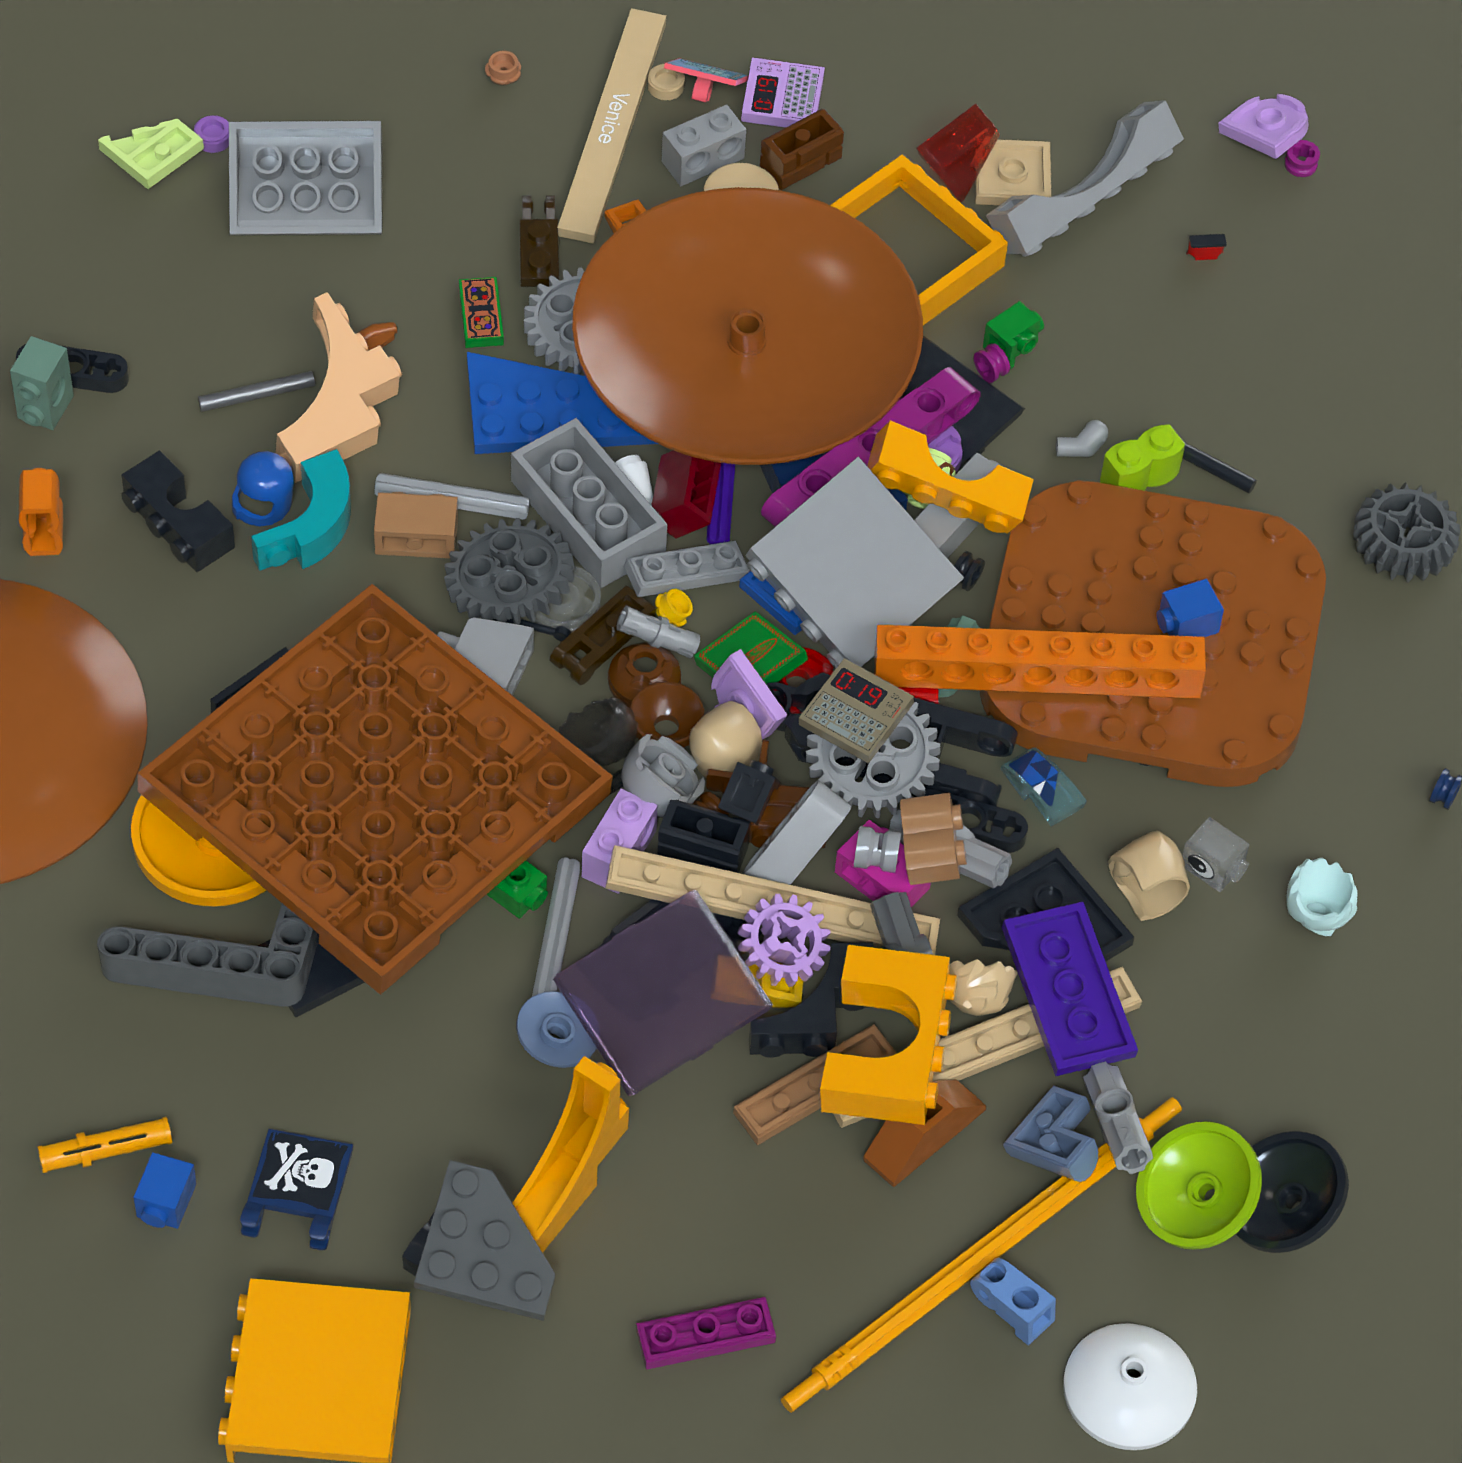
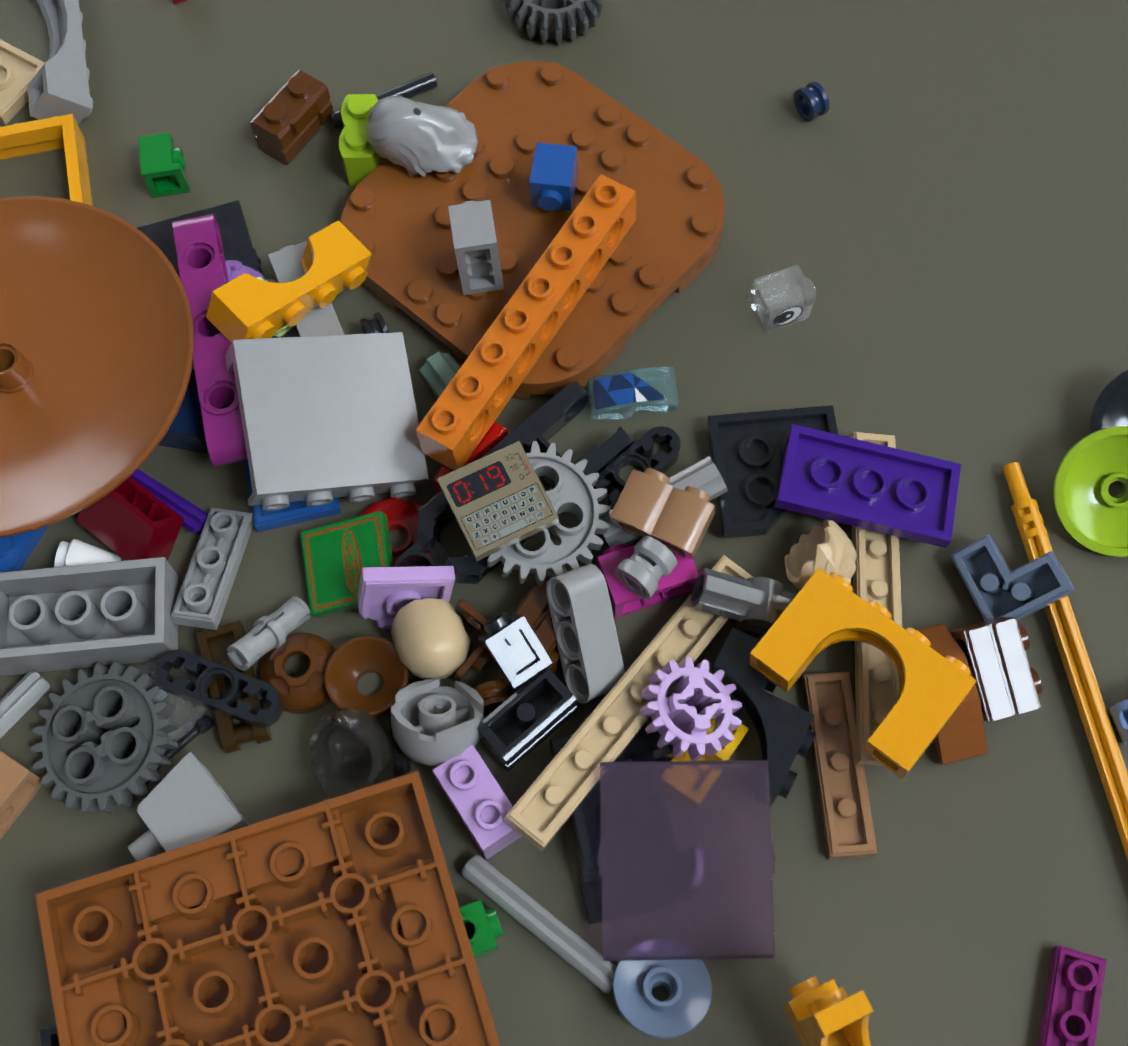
camera: 55 degrees left, 10 degrees up
(586, 636) = (195, 665): none -> black beam
(674, 606) = (247, 603): yellow plate -> none
(968, 1152) = (1000, 666): none -> brick
(991, 363) = (178, 196): magenta bush -> none
(1072, 585) = (476, 247): none -> light grey brick
(1085, 444) = (309, 173): light grey arm -> none
(1118, 1117) = (1051, 524): light grey piece -> none
(1127, 399) = (292, 117): none -> reddish brown brick
(1150, 875) = (776, 356): tan piece -> none
(1167, 508) = (421, 135): none -> light grey piece
(1321, 896) = (873, 241): light aqua hair -> none

